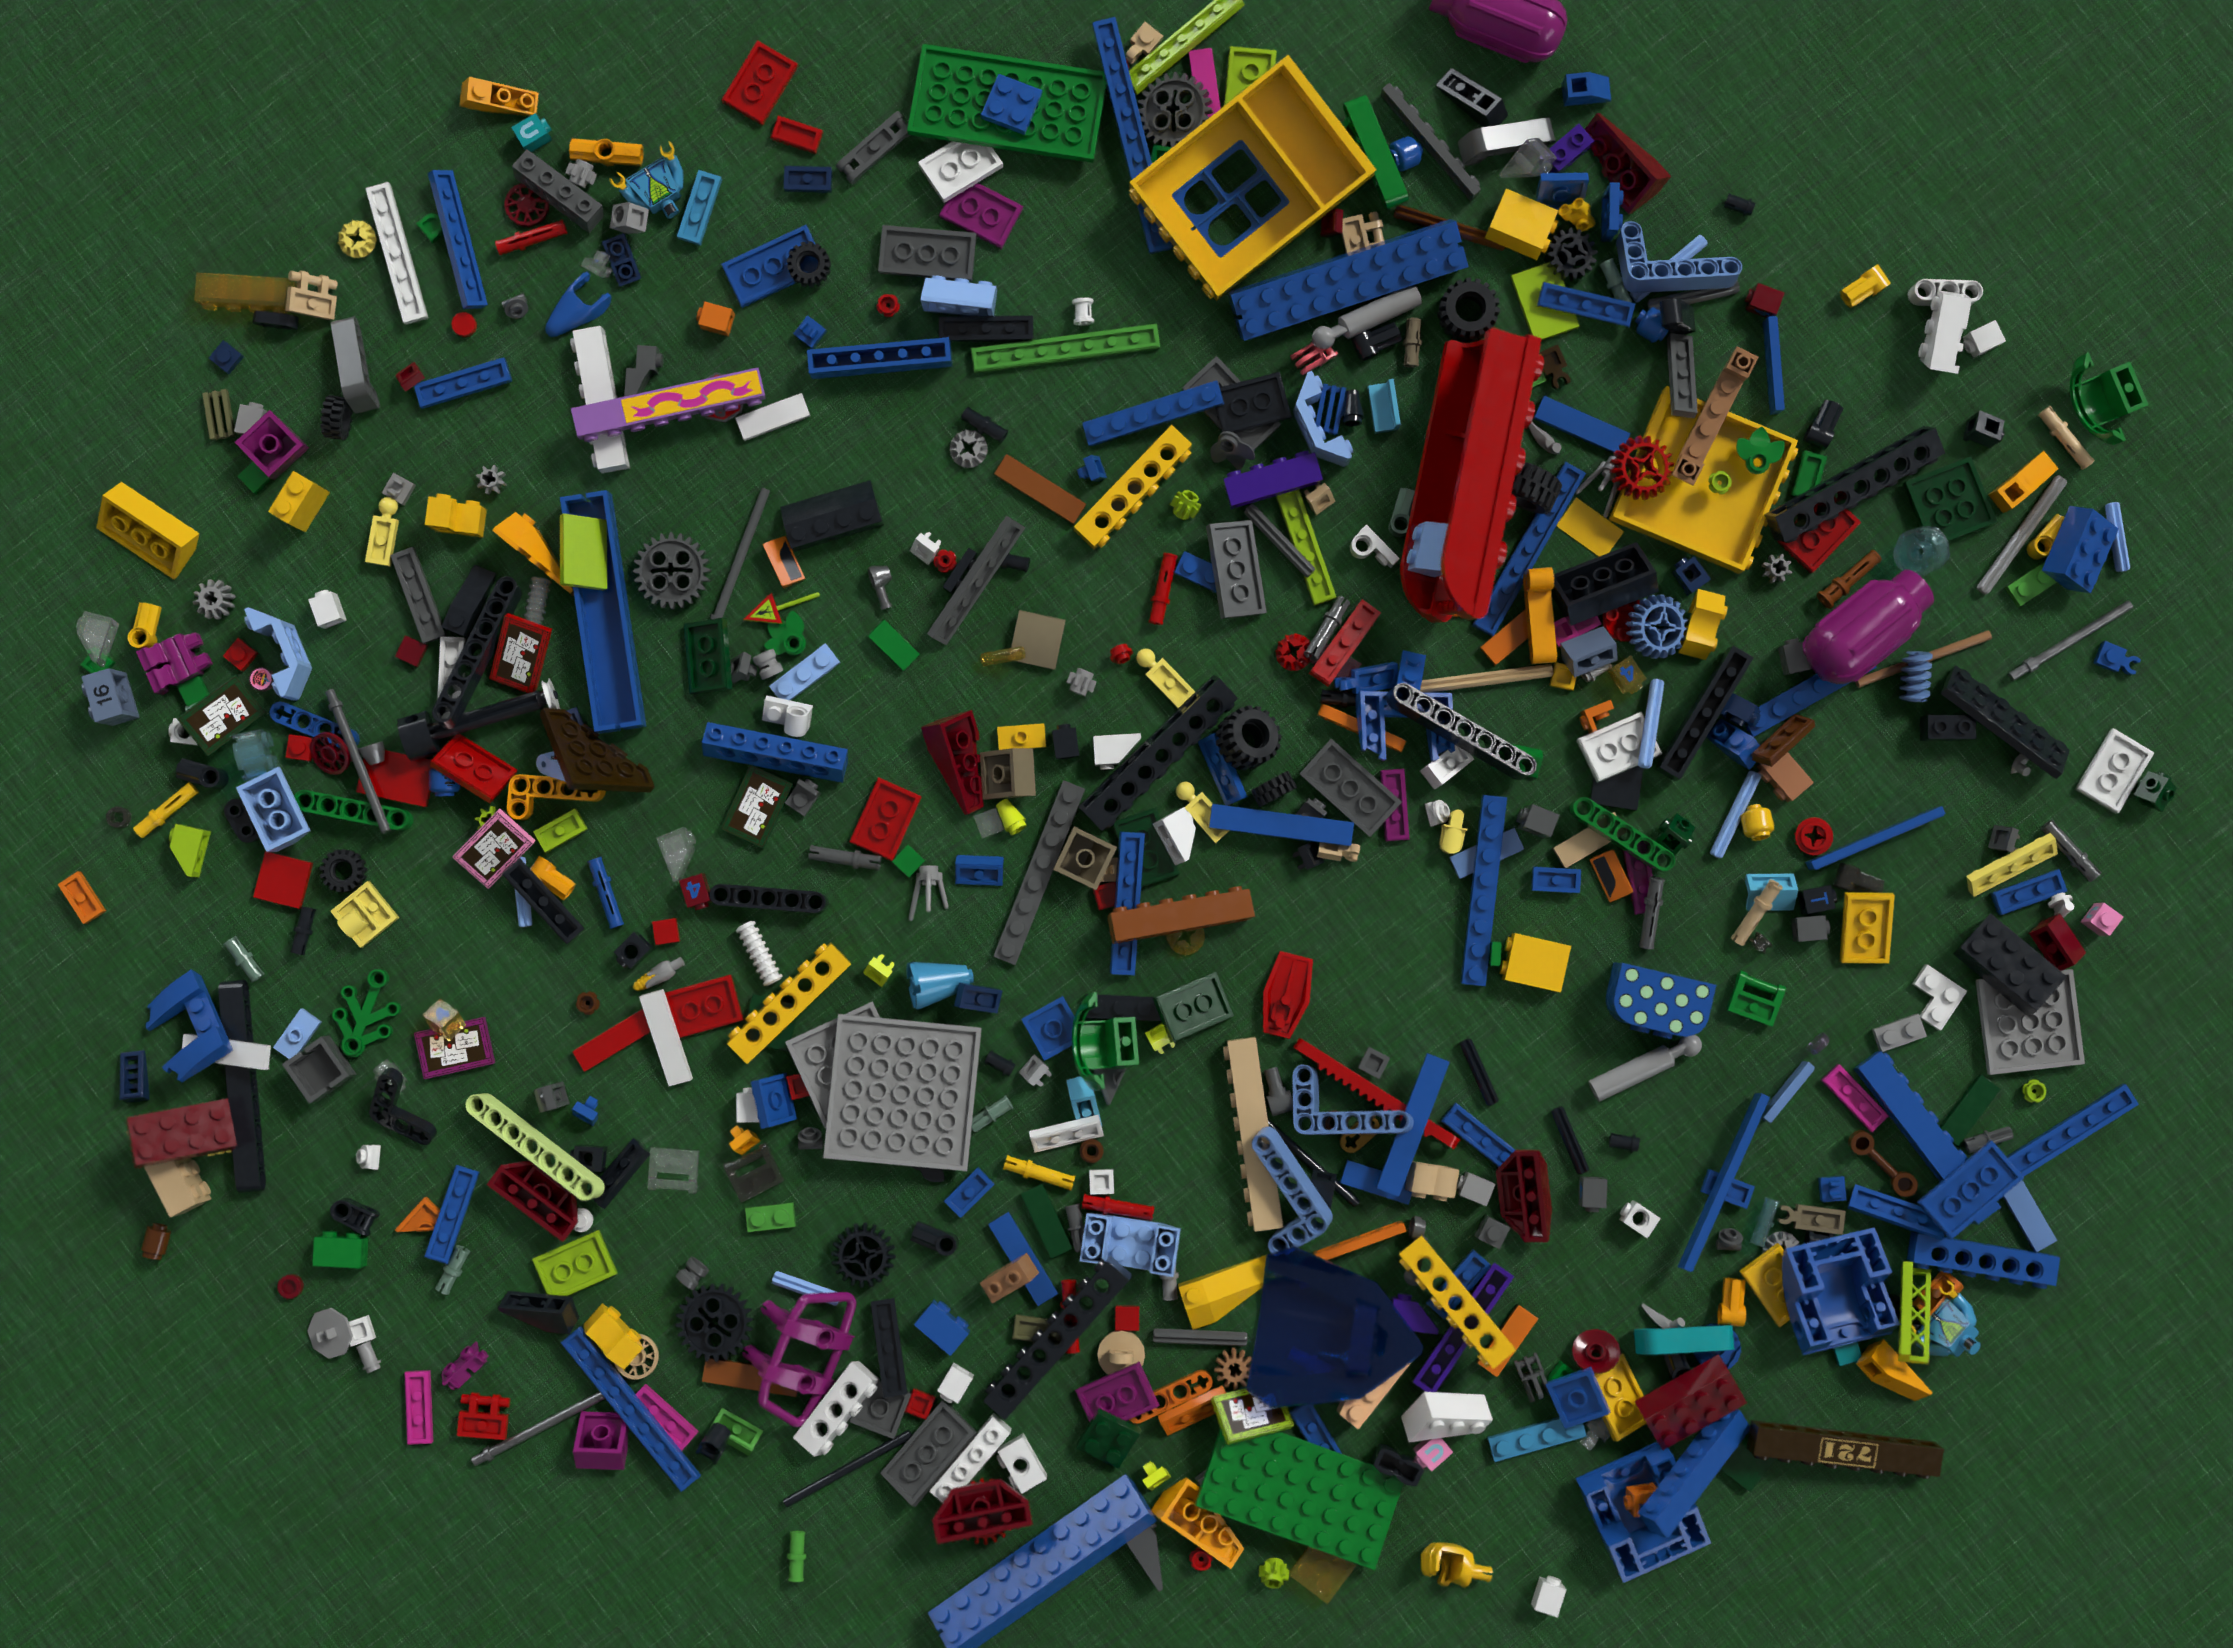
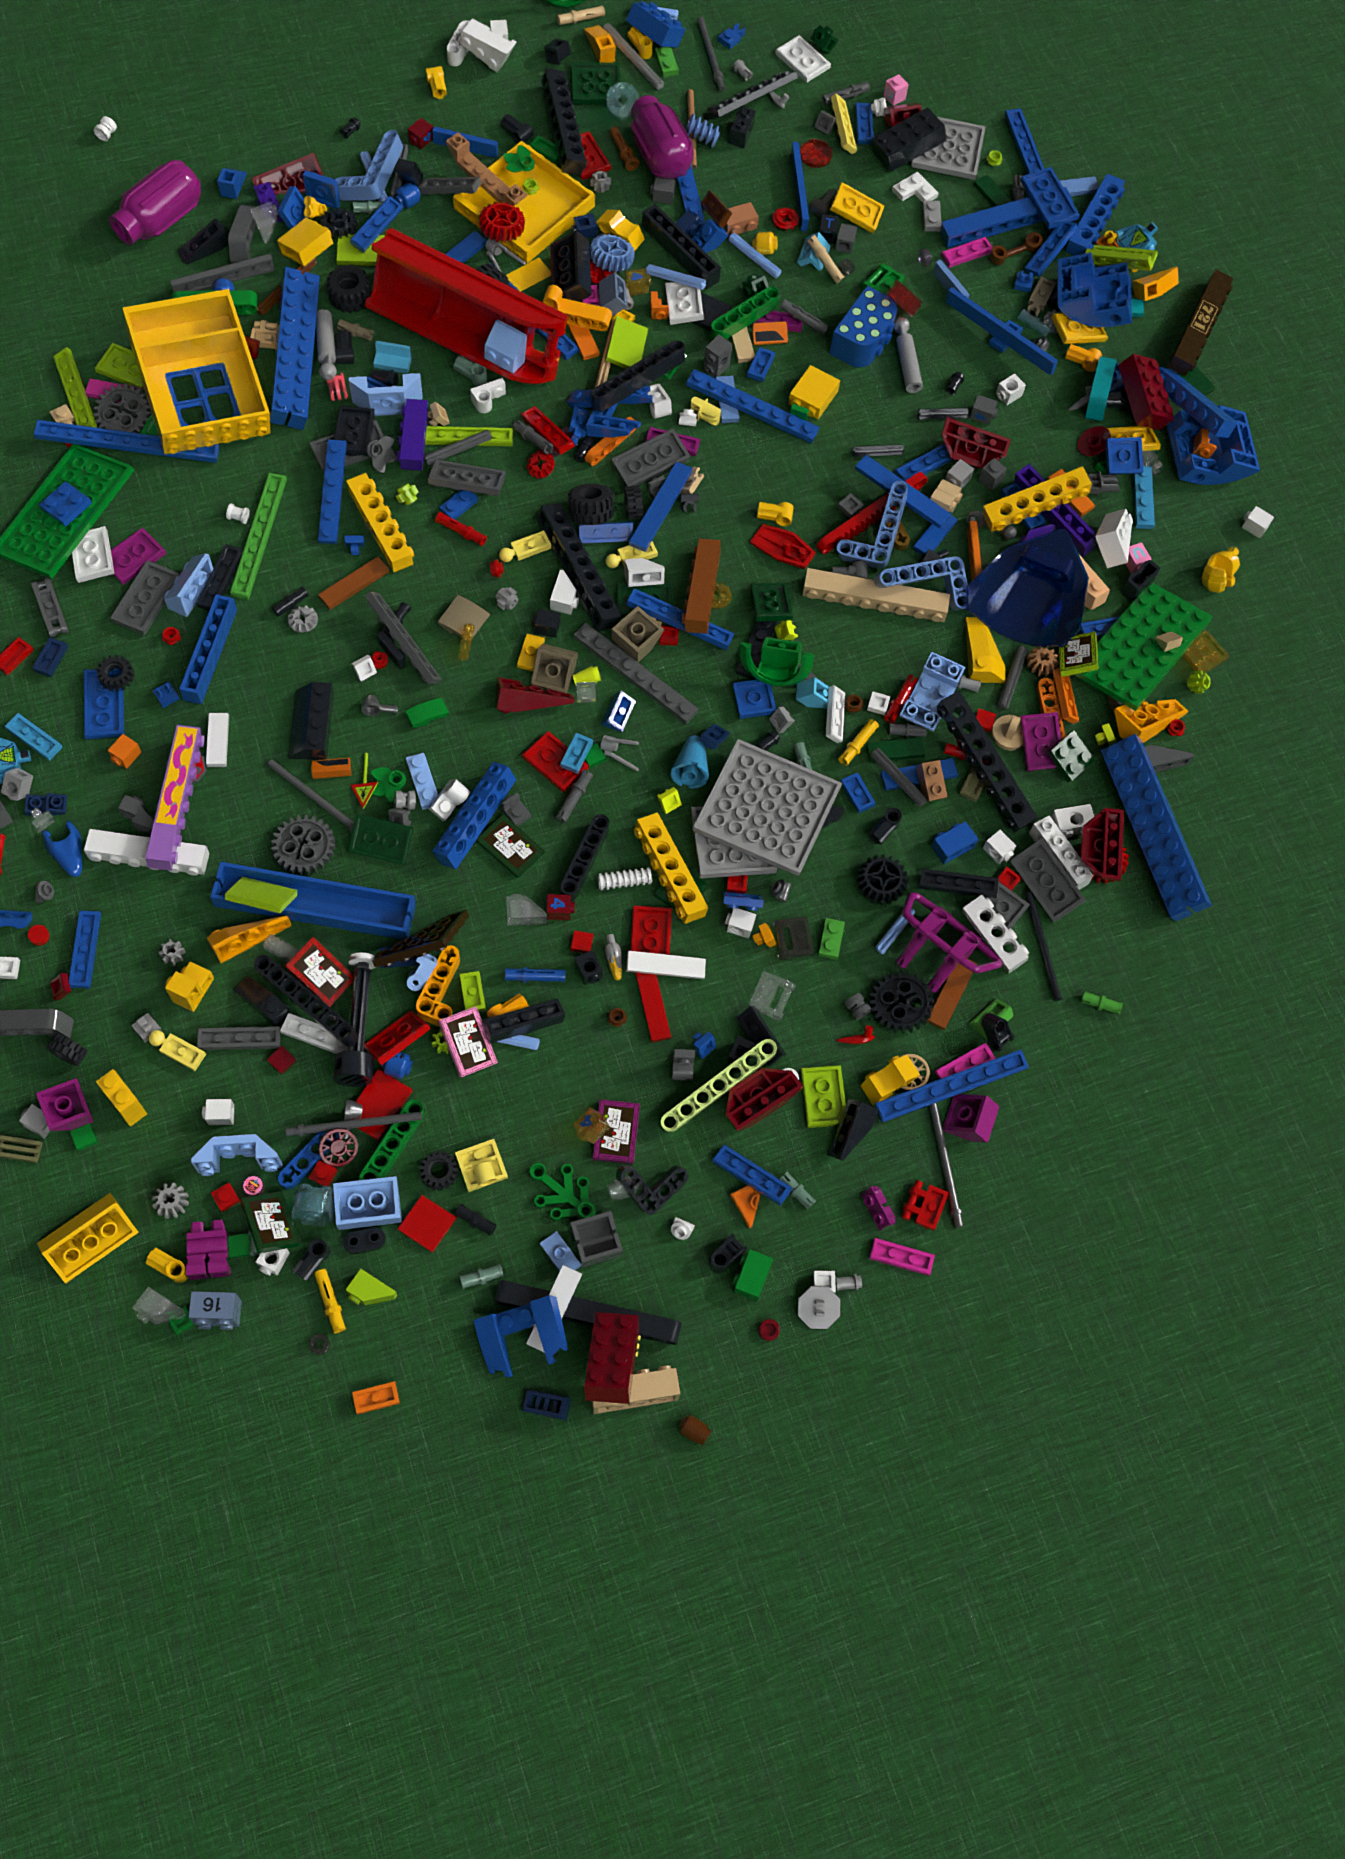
camera: 80 degrees left, 20 degrees down
(656, 1284) = (859, 1039): none -> red bar
(897, 842) = (576, 753): none -> dark azure plate
(1004, 1236) = (899, 777): none -> dark grey axle
(1308, 1522) = (1169, 641): none -> tan slope
(1332, 976) = (780, 513): none -> yellow piece
(1519, 696) = (626, 343): none -> lime tile
(1719, 1036) = (903, 298): none -> clear red slope
(1947, 841) = (816, 153): none -> clear red tile
(2056, 693) = (742, 70): none -> light grey pin

